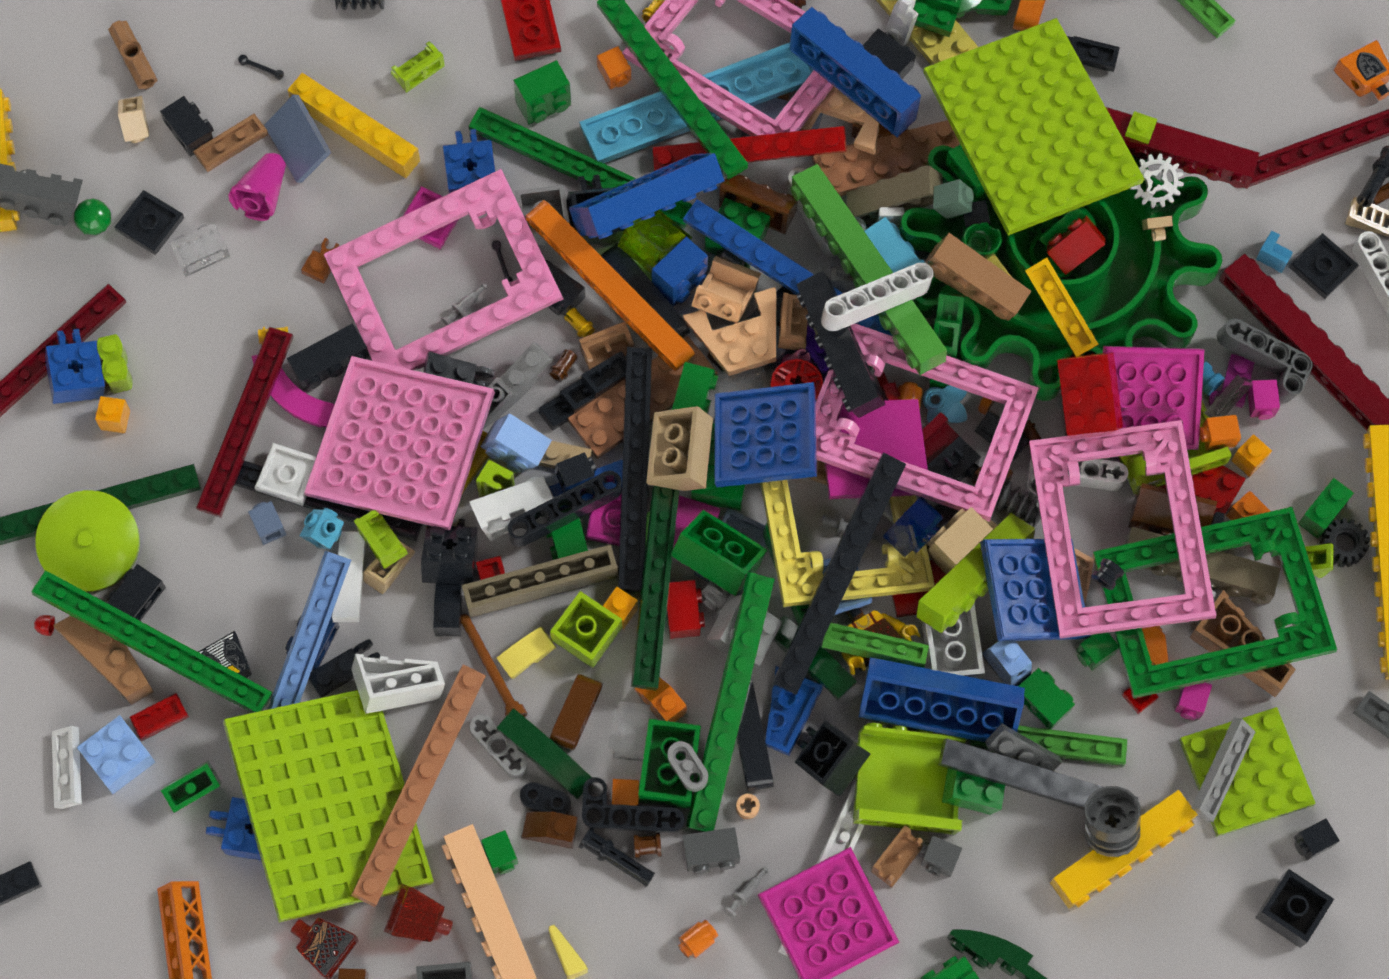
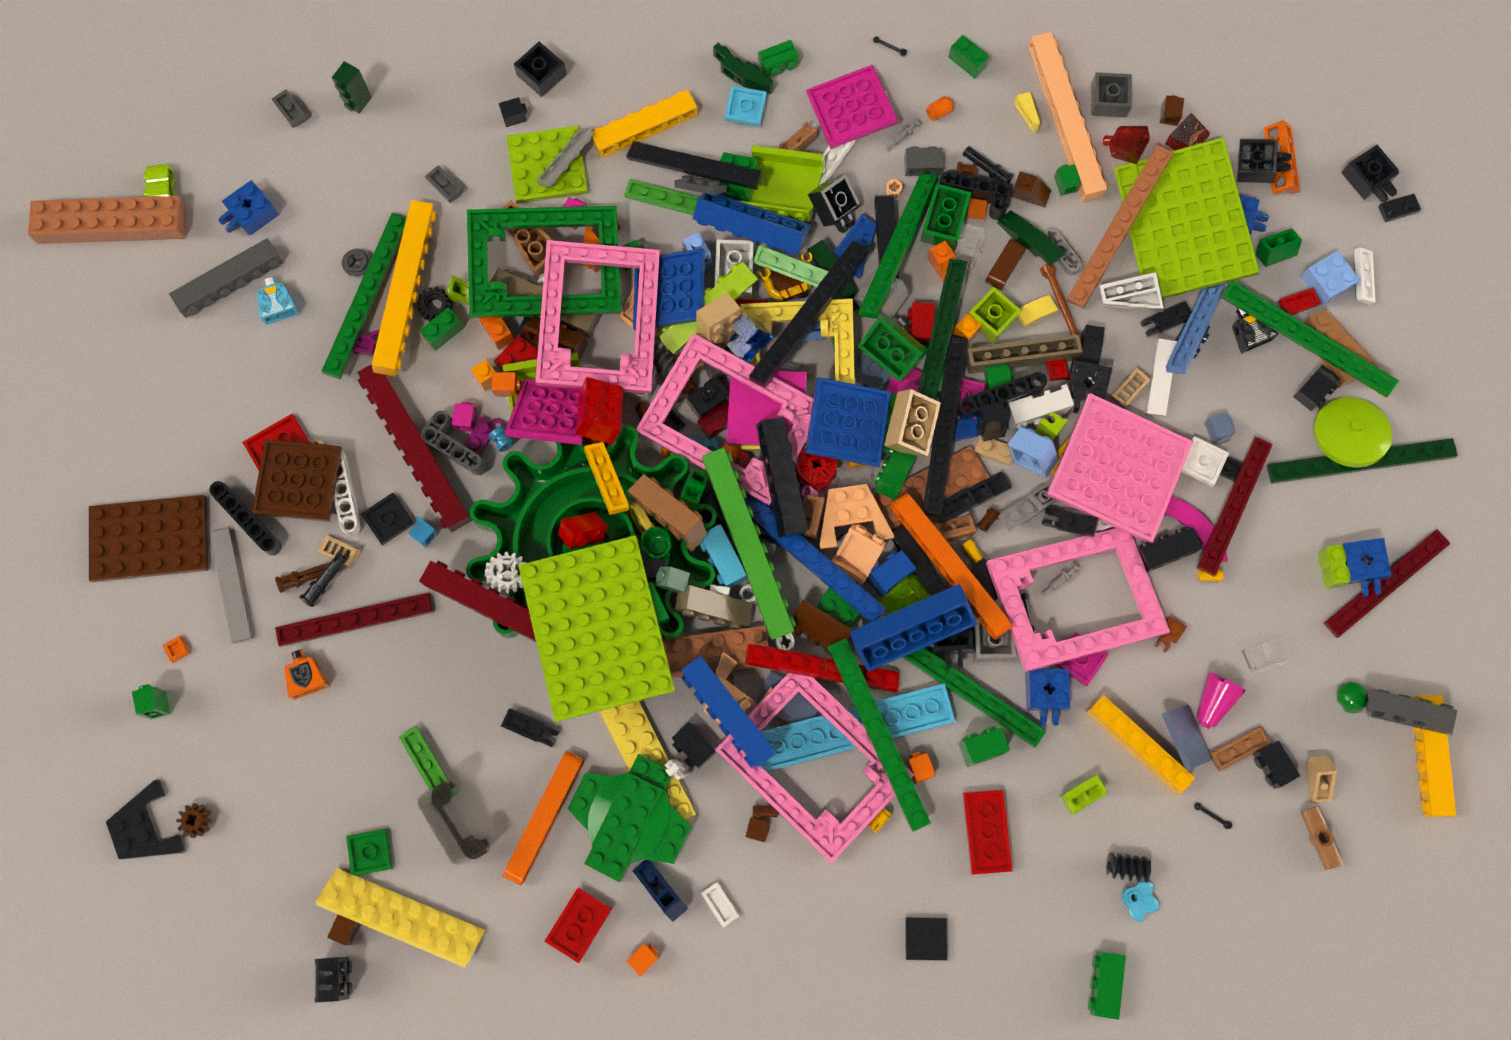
camera: 170 degrees left, 5 degrees up
(39, 921) = (1372, 174): none -> black hinge
(112, 414) = (1335, 526): light orange brick -> none
(149, 222) = (1306, 684): black plate -> none
(210, 927) = (1259, 161): none -> black hinge
(322, 528) = (1180, 415): medium azure brick -> none
(380, 538) = (1138, 397): lime hinge -> none
(545, 799) = (1031, 213): black plate -> none
(689, 766) = (936, 202): light grey plate -> none
(890, 292) = (738, 500): white beam -> none
(939, 856) = (768, 135): dark grey brick -> none
(983, 901) = (745, 106): none -> medium azure plate
(1046, 699) = (674, 225): green brick -> none
(1108, 574) = (617, 277): black wheel -> none
(1112, 821) = (653, 114): dark grey wheel -> none
(1141, 127) = (508, 613): lime plate -> none
(1157, 226) = (514, 538): tan tile -> none
(1229, 397) = (492, 410): clear smoke tile -> none

